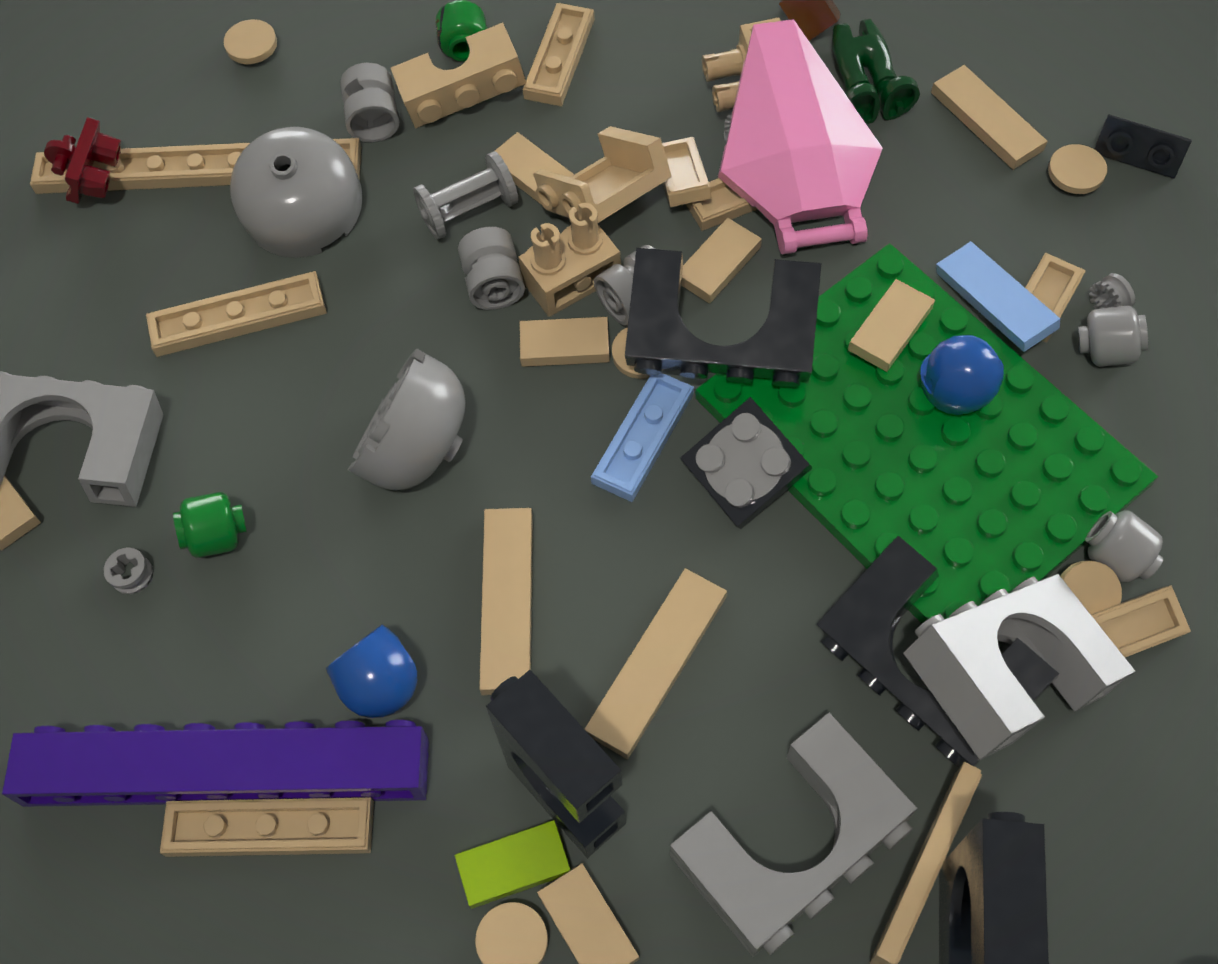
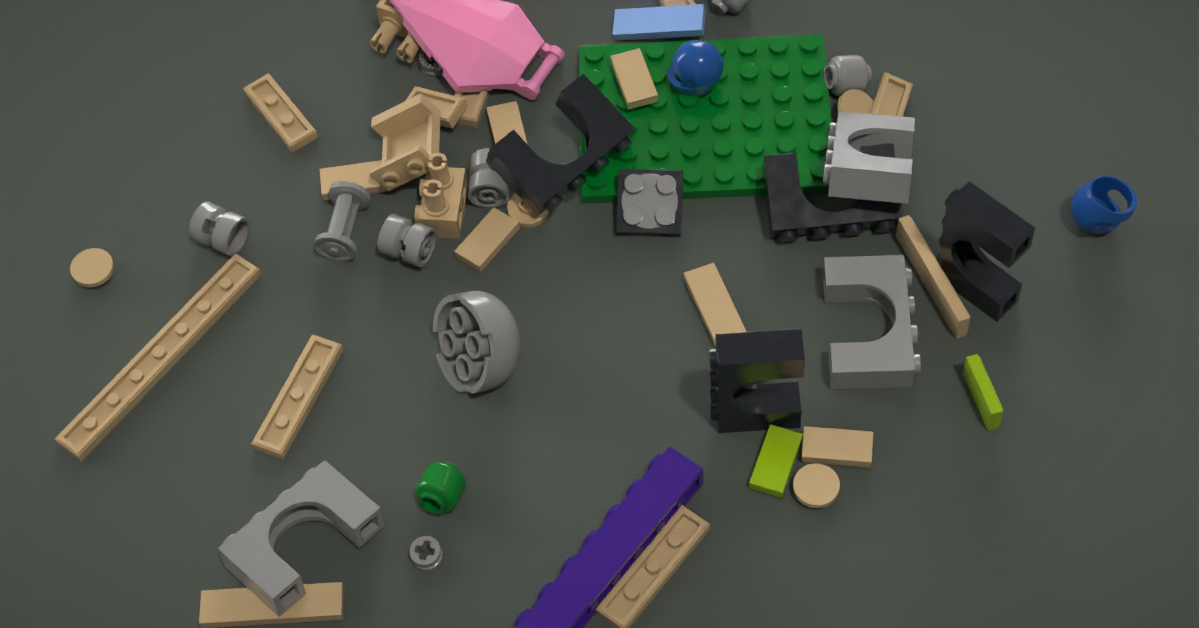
camera: 50 degrees left, 5 degrees down
(79, 160) = (101, 409): dark red hips -> none
(295, 191) = (248, 307): light grey cylinder -> none
(374, 675) = (621, 453): blue helmet -> none
(454, 23) = (212, 148): green head -> none
(487, 72) = (246, 192): tan arch -> none
(506, 596) = (623, 370): tan tile -> none
(642, 436) = (583, 242): light blue tile -> none

